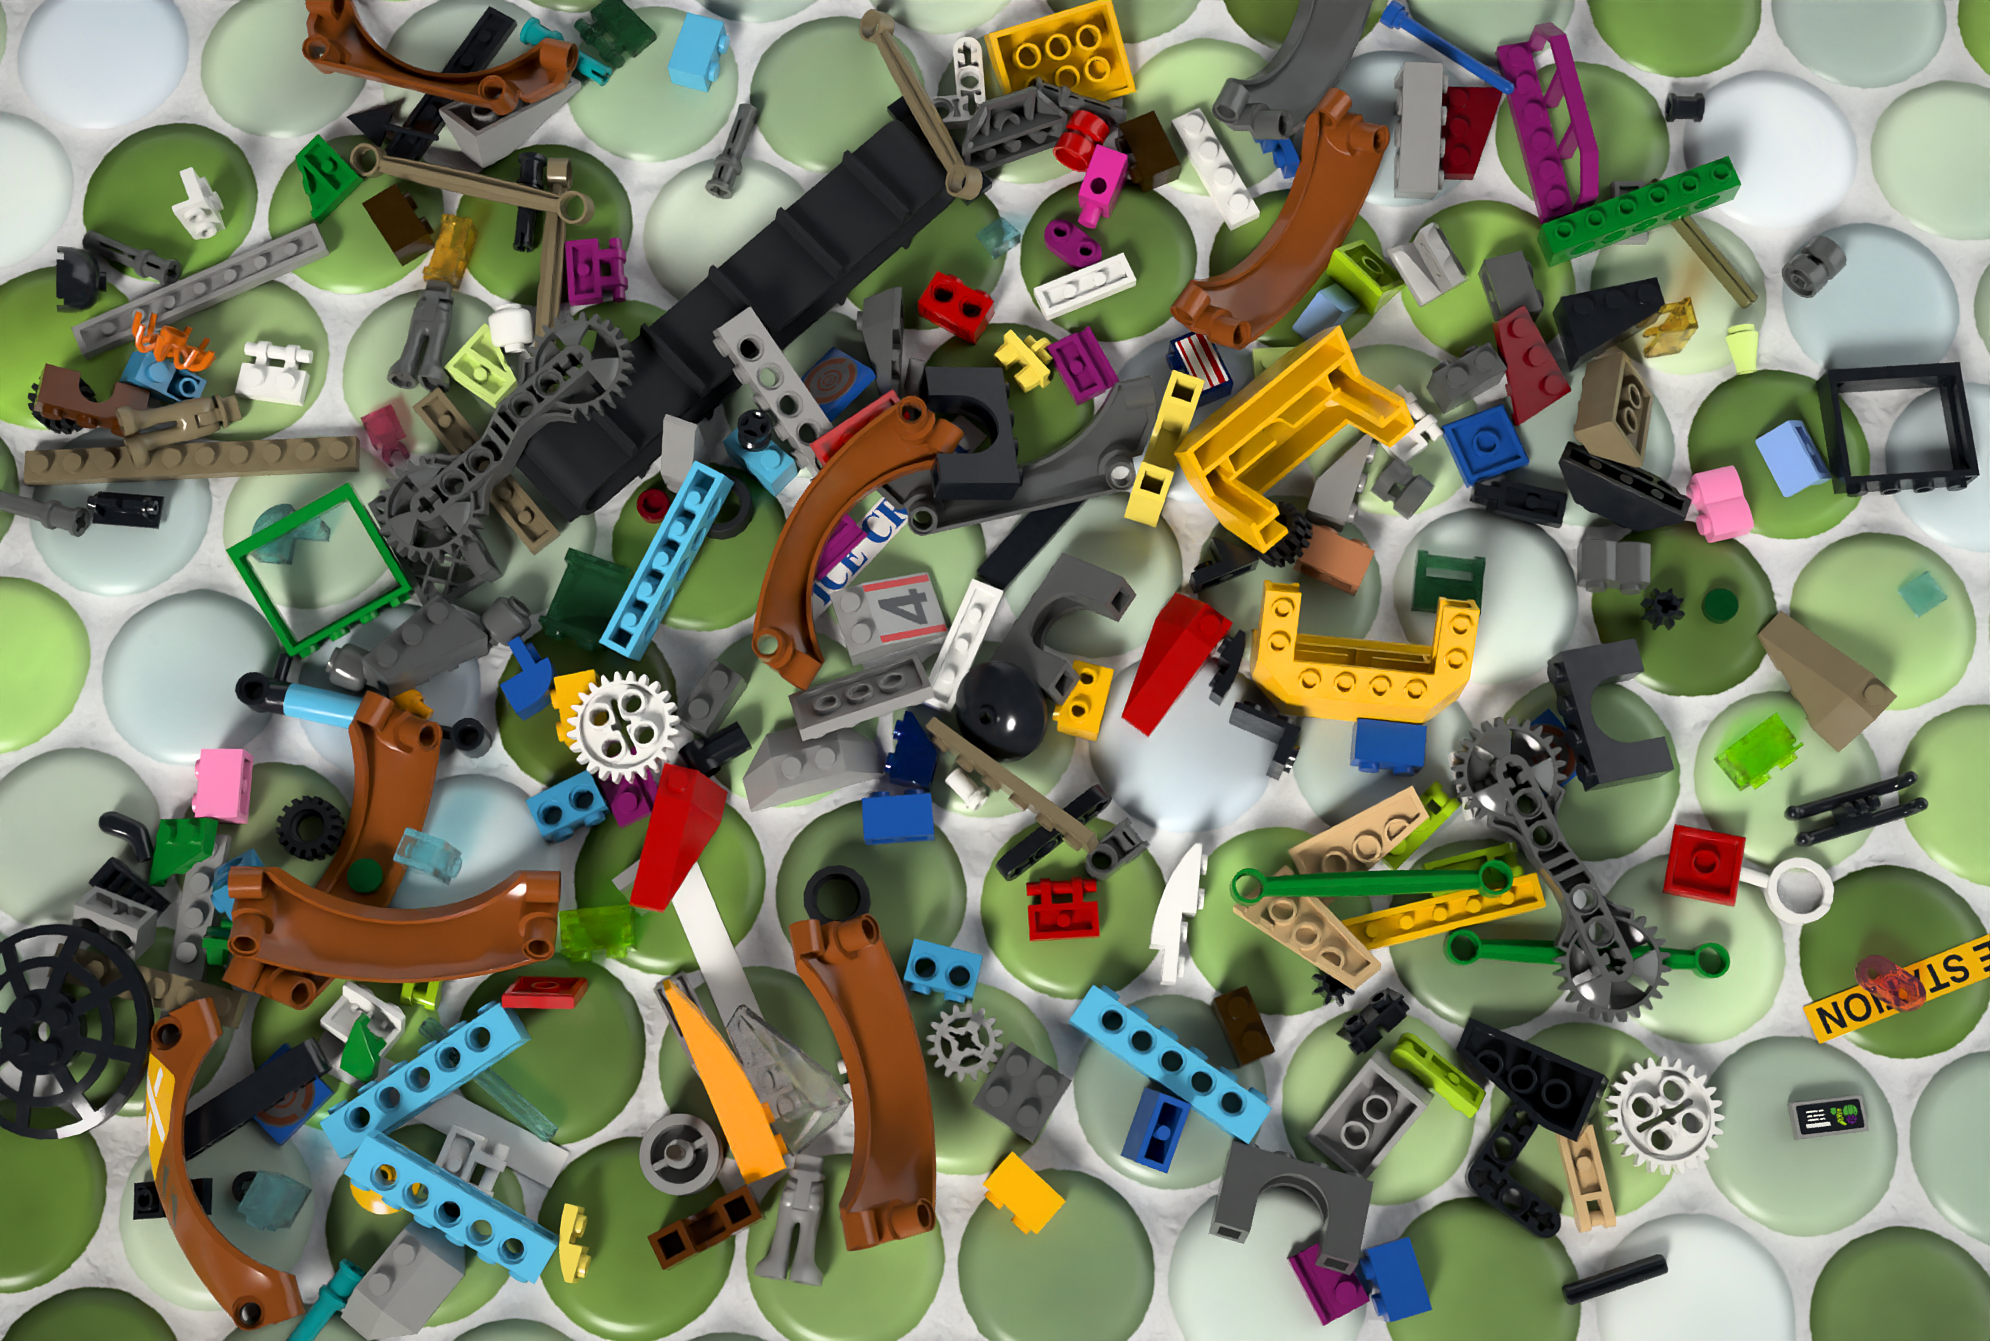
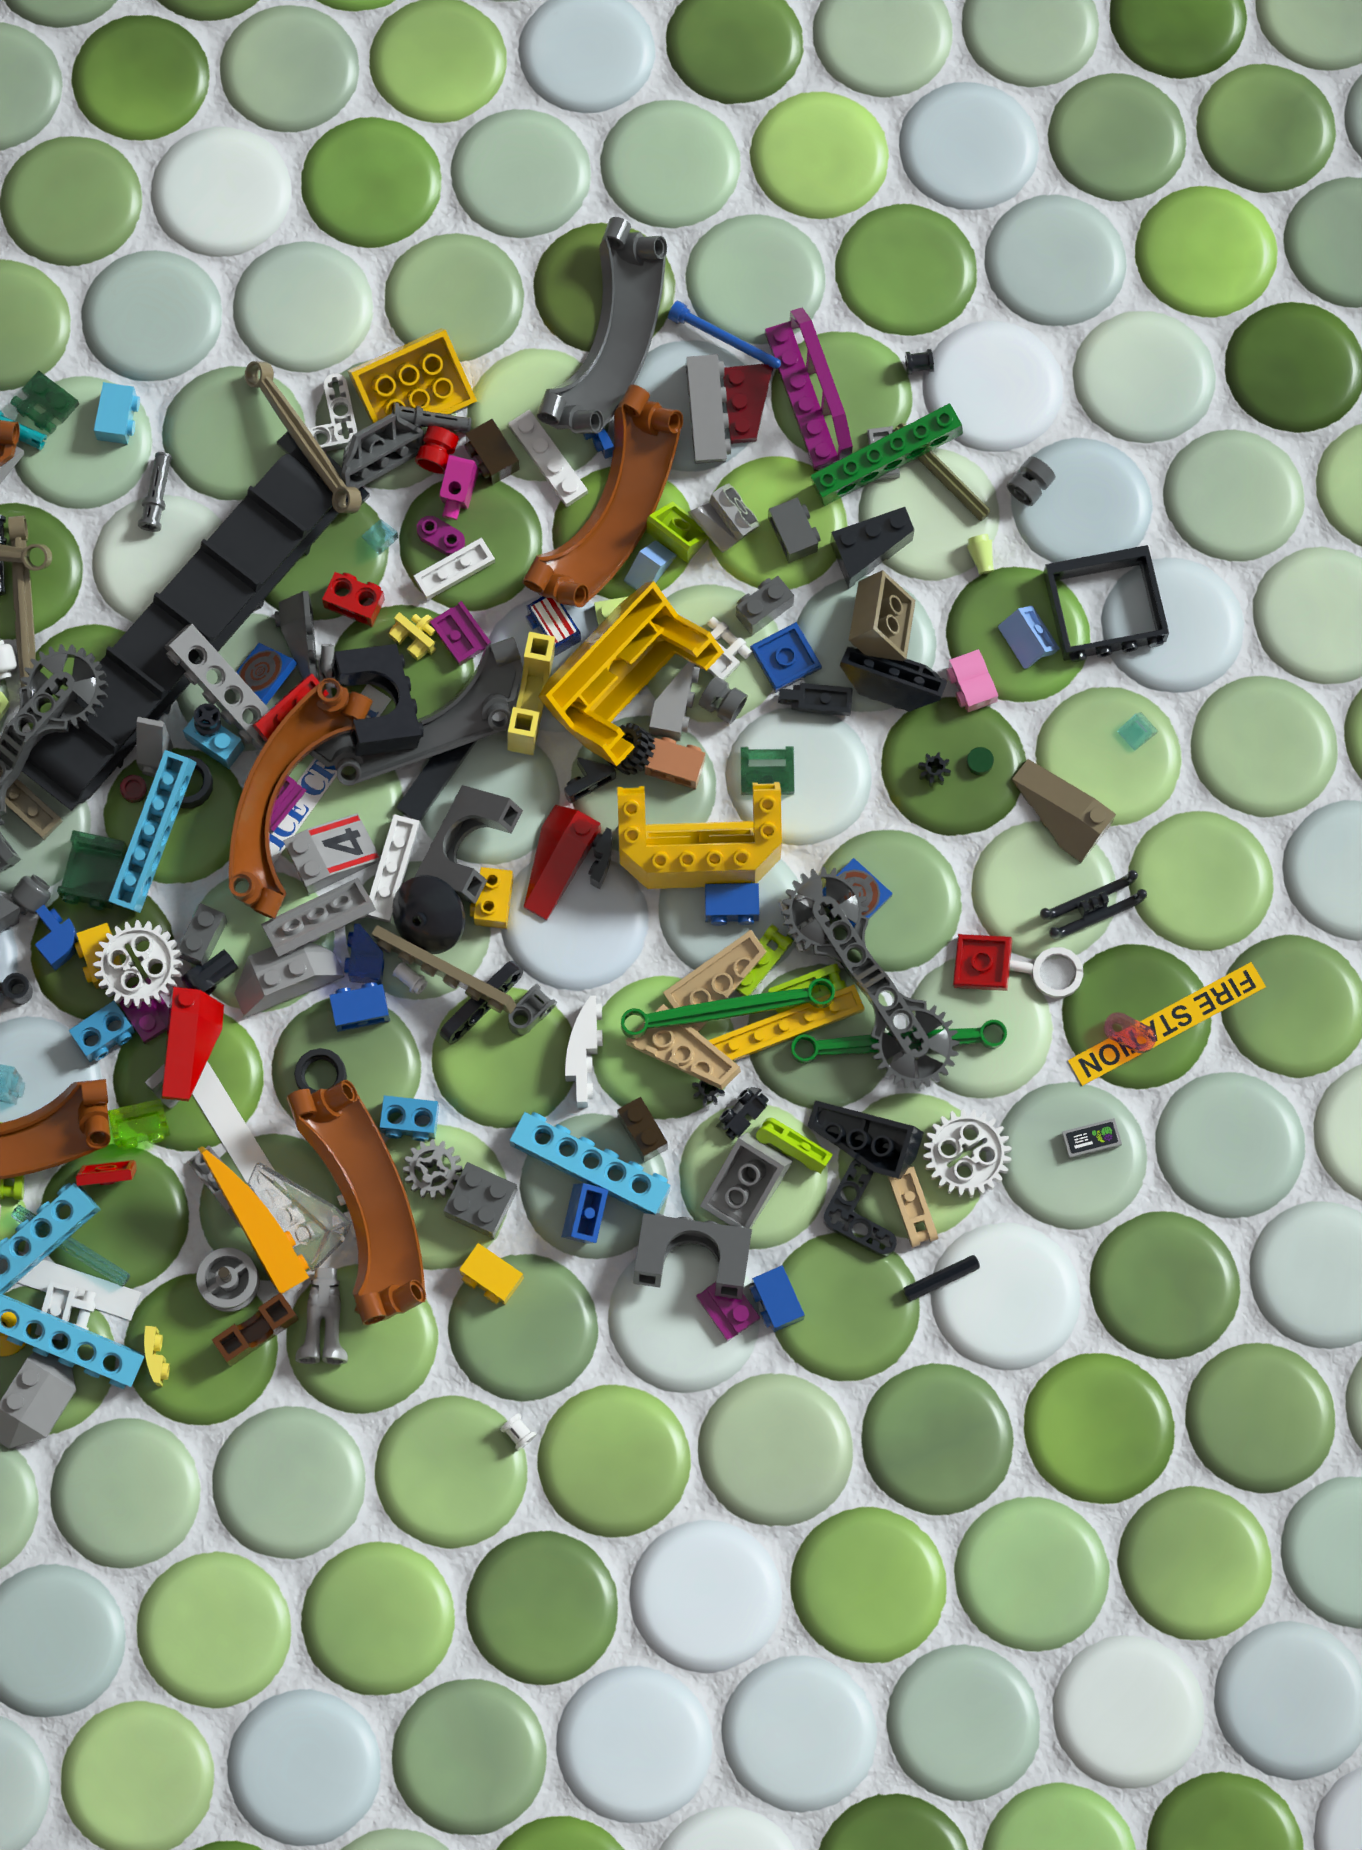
camera: 10 degrees left, 0 degrees up
(585, 271) = (50, 605): magenta plate -> none
(1062, 920) = (495, 1068): red plate -> none
(1275, 729) = (641, 900): black bracket -> none
(1531, 369) = (814, 592): dark red wing -> none
(1599, 758) = (895, 892): black arch -> none
(1613, 565) = (893, 740): dark grey brick -> none
(1674, 332) = (924, 550): clear yellow hinge -> none
(1759, 752) = (1017, 871): clear neon green hinge -> none

